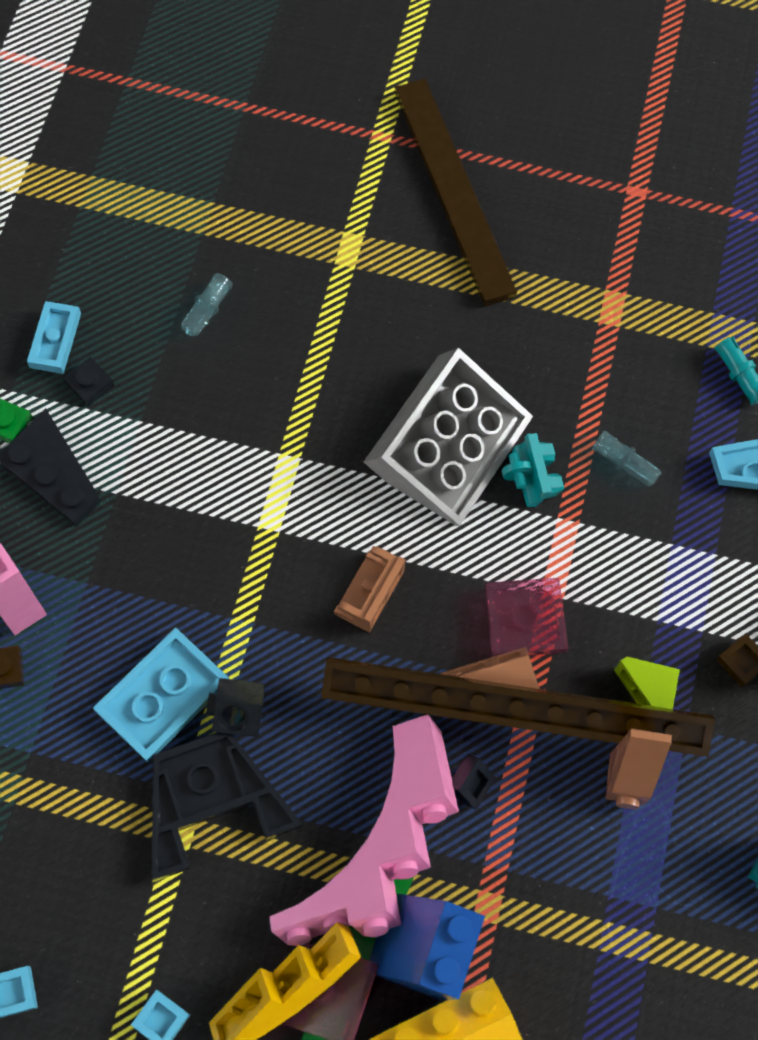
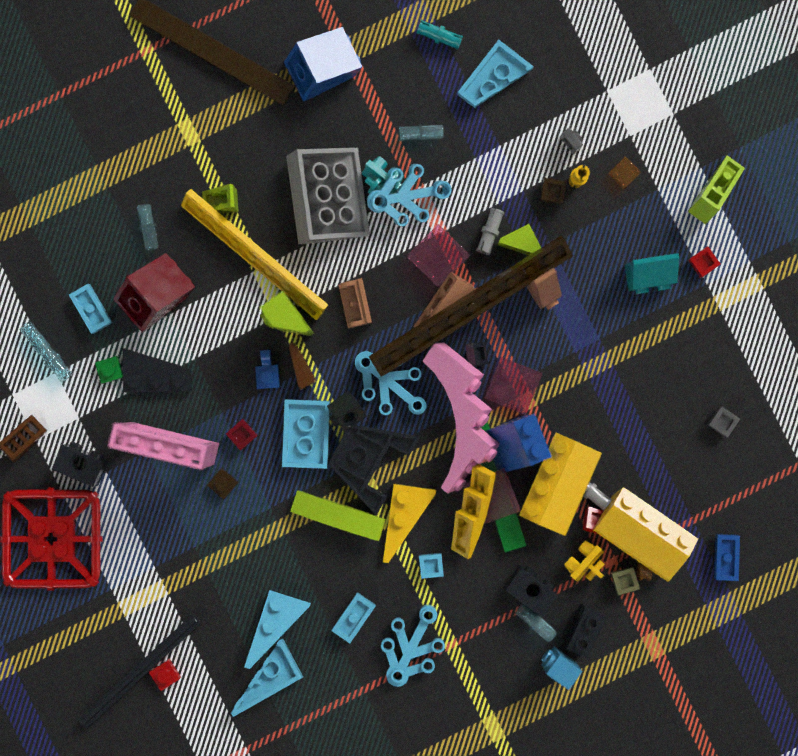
camera: 40 degrees left, 20 degrees up
(83, 626) = (241, 434): none -> dark red plate
(103, 837) = (338, 515): none -> lime slope
(142, 372) = (153, 292): none -> dark red slope
(184, 583) = (267, 375): none -> blue plate
(196, 910) = (405, 510): none -> yellow wing
(229, 614) = (302, 370): none -> reddish brown slope
(268, 519) = (284, 316): none -> lime slope
(299, 436) = (253, 254): none -> yellow tile
(319, 343) = (222, 198): none -> lime slope
(326, 717) = (388, 381): none -> medium azure plant
(486, 866) = (513, 385): none -> clear pink plate
(544, 509) = (405, 195): none -> medium azure plant
(572, 291) = (322, 63): none -> slope
(618, 642) = (490, 231): none -> light grey pin

